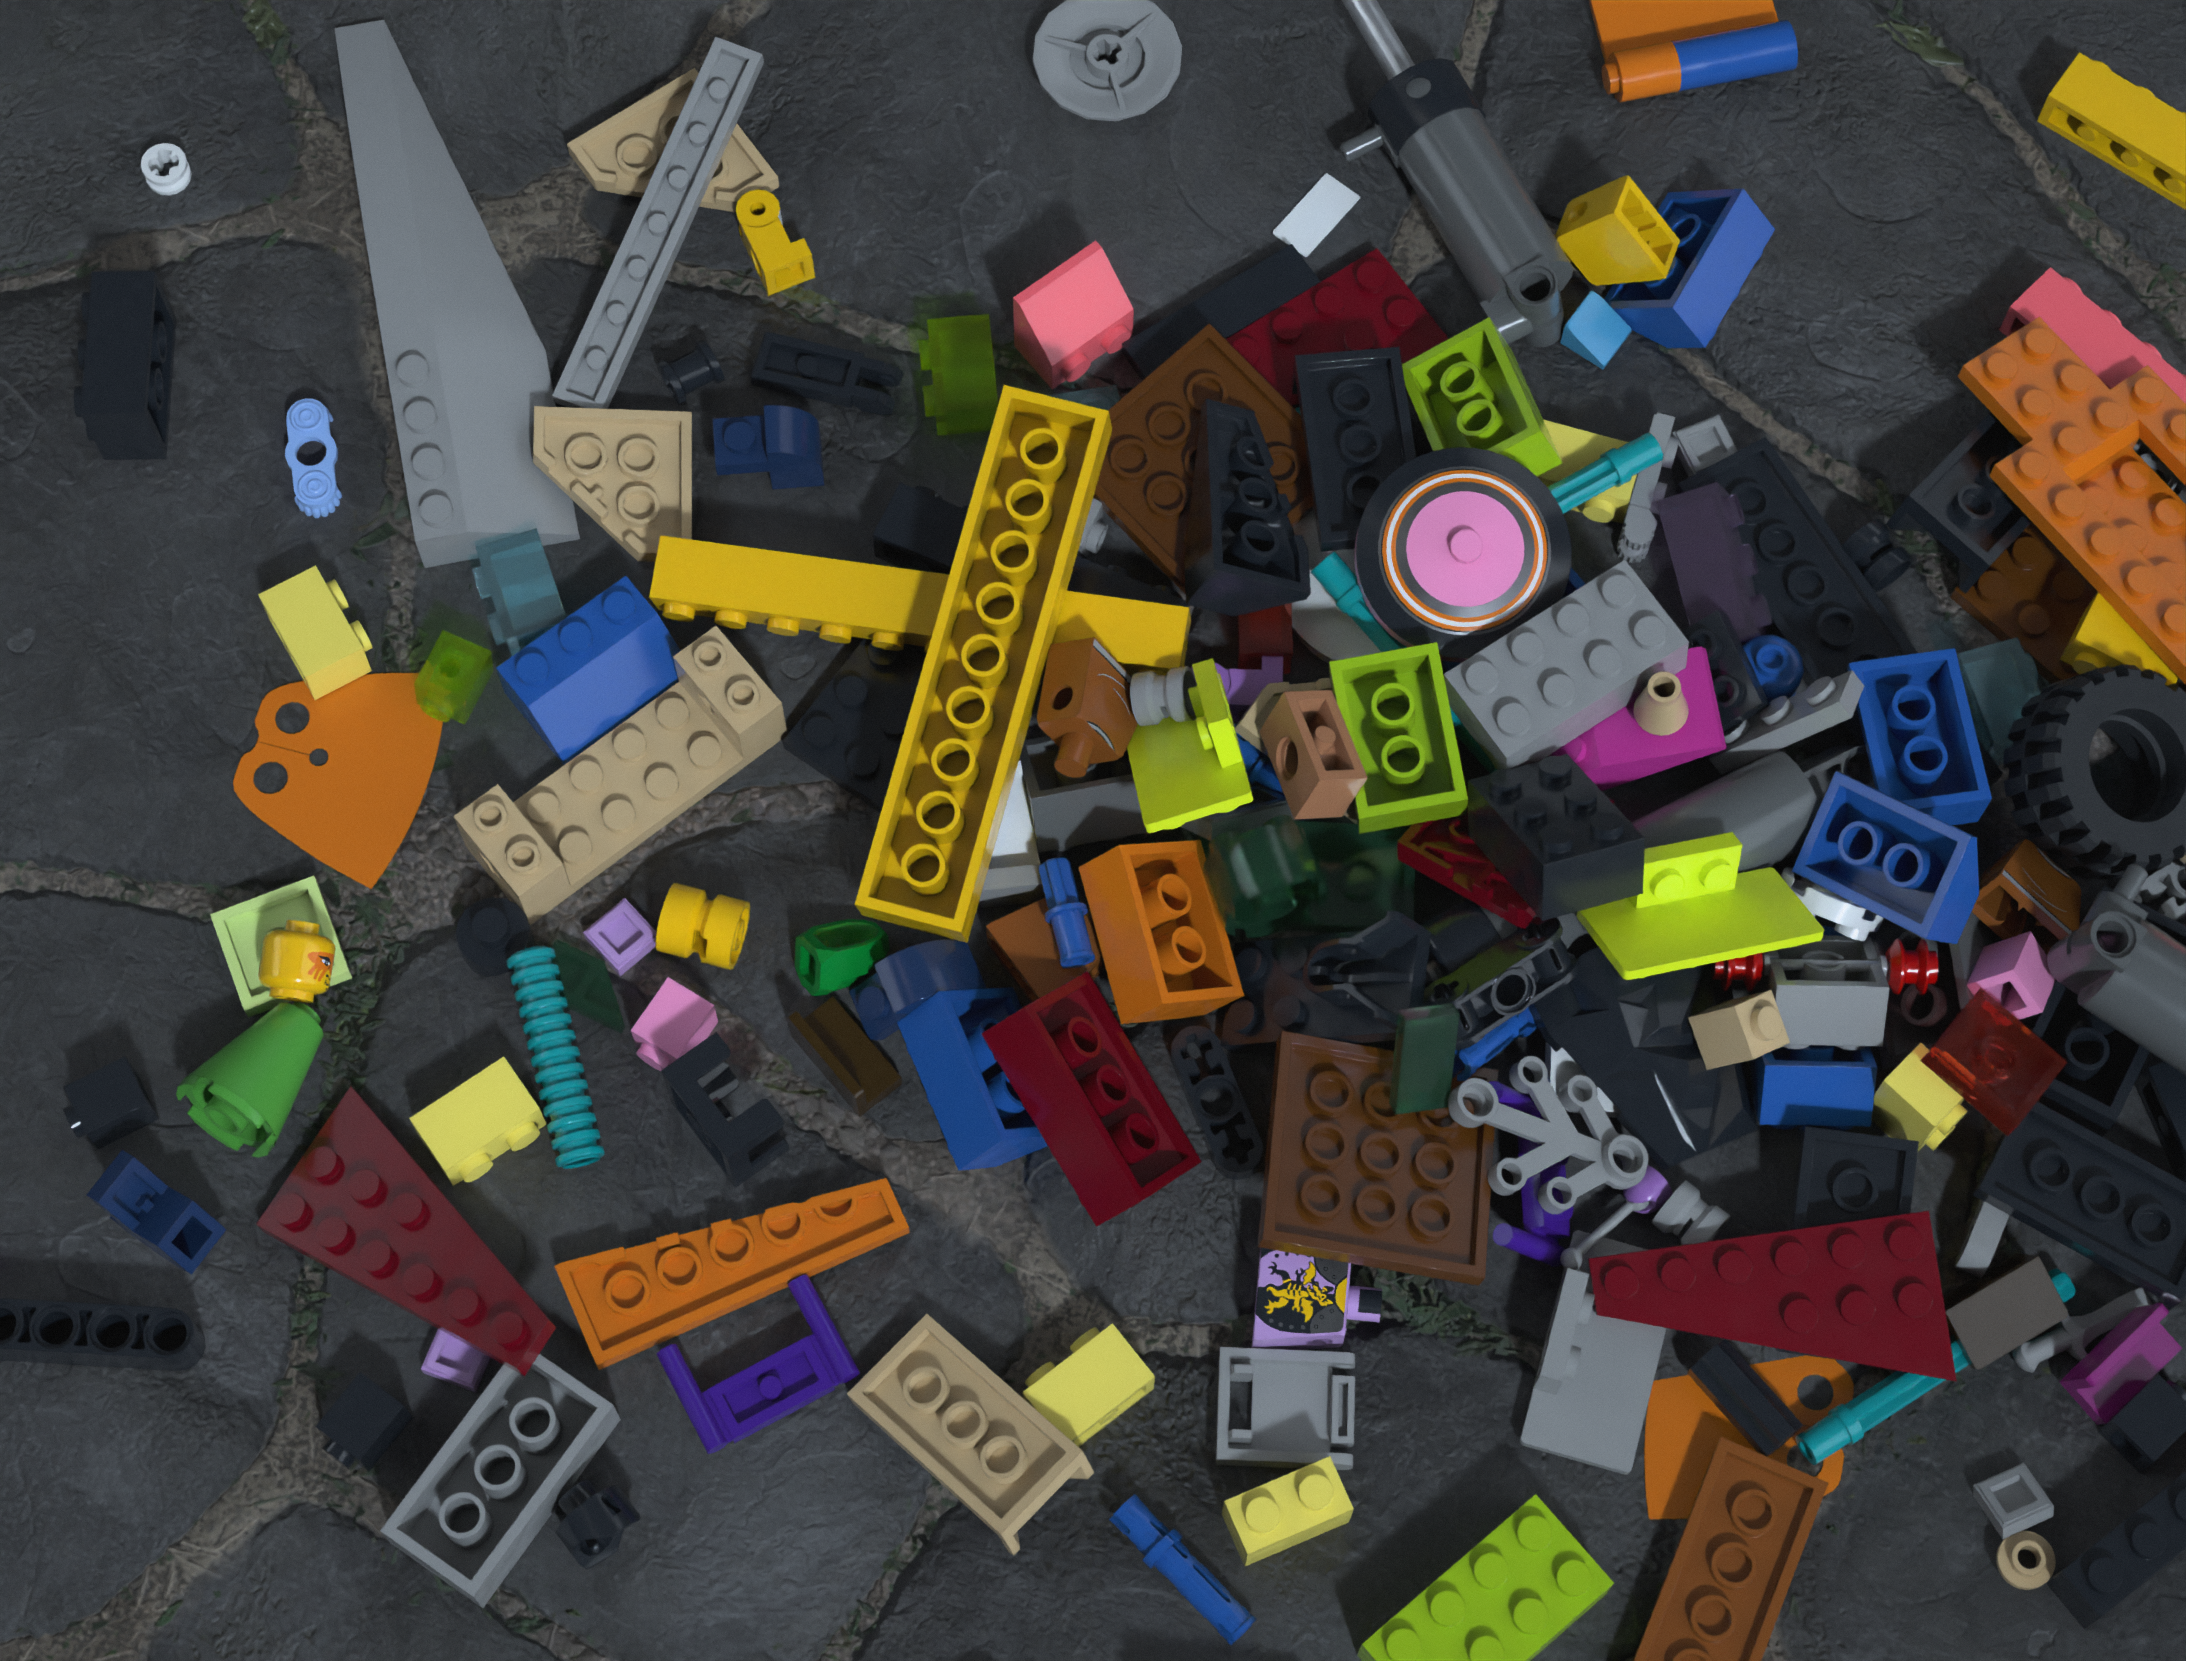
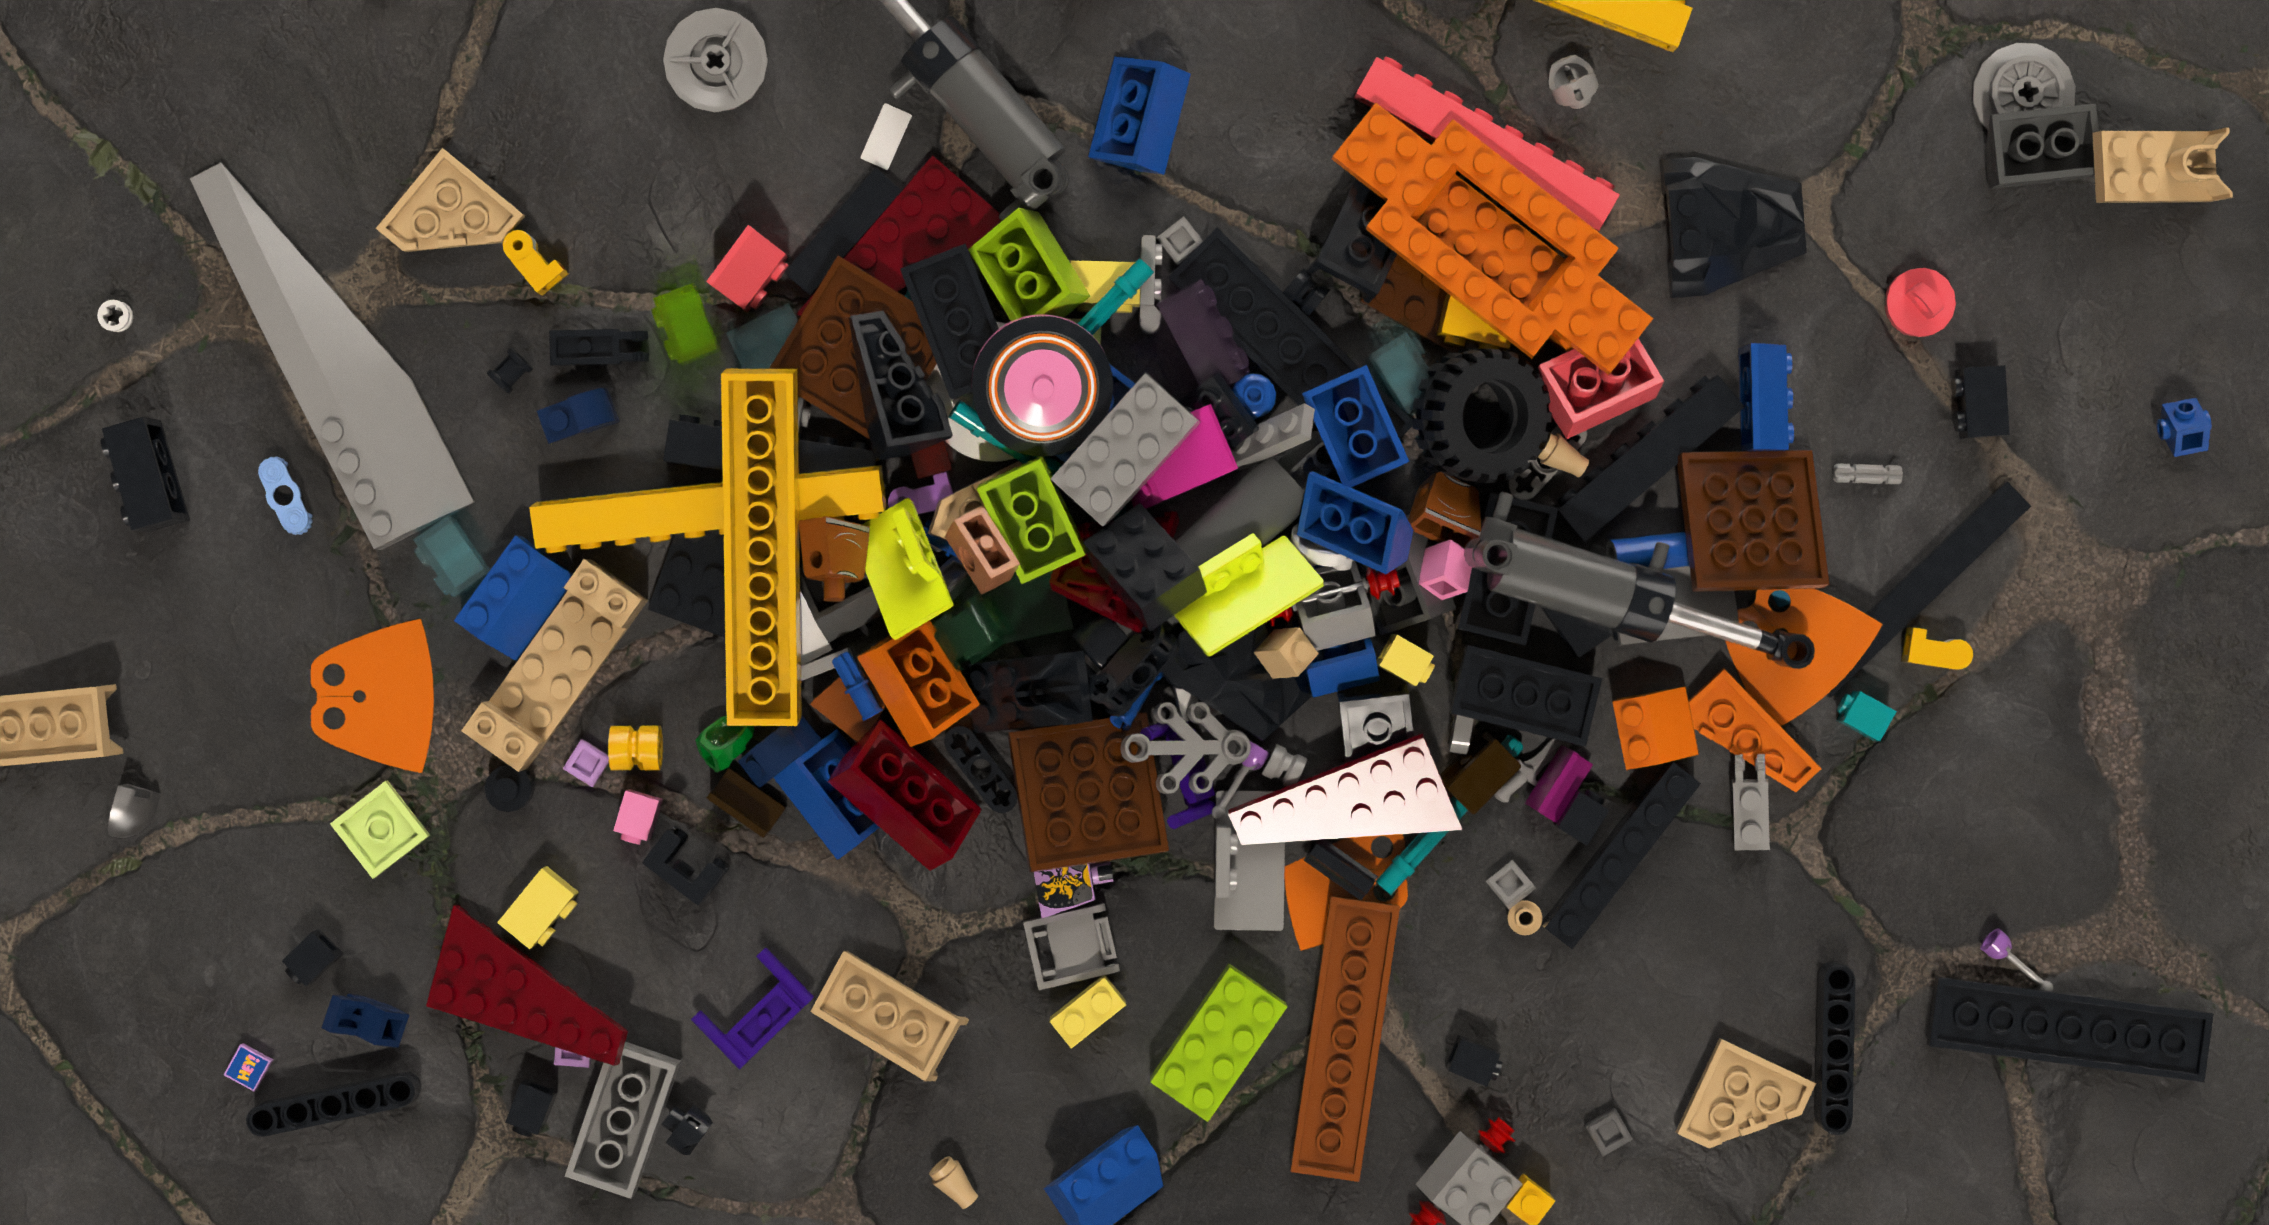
camera: 15 degrees left, 20 degrees up
(254, 1079) = (396, 918): bright green cone -> none
(296, 962) = (395, 846): yellow head -> none
(316, 632) = (330, 619): light yellow brick -> none
(453, 678) = (427, 628): clear neon green brick -> none
(555, 1057) = (572, 856): teal piece -> none
(587, 986) = (571, 800): clear green tile -> none
(621, 469) = (490, 455): tan plate -> none
(659, 227) = (457, 276): light grey plate -> none
(682, 1281) = (692, 969): orange wing -> none
(1090, 1385) = (951, 969): light yellow brick -> none
(1162, 696) = (876, 533): light grey wheel -> none
(1175, 1562) = (1036, 1059): blue pin -> none
(1423, 1058) = (1099, 733): clear green tile -> none
(1595, 331) = (1091, 176): dark azure slope -> none
(1617, 235) = (1087, 114): yellow torso -> none
(1661, 705) = (1201, 462): tan cone -> none
(1994, 1061) = (1443, 634): clear red plate -> none

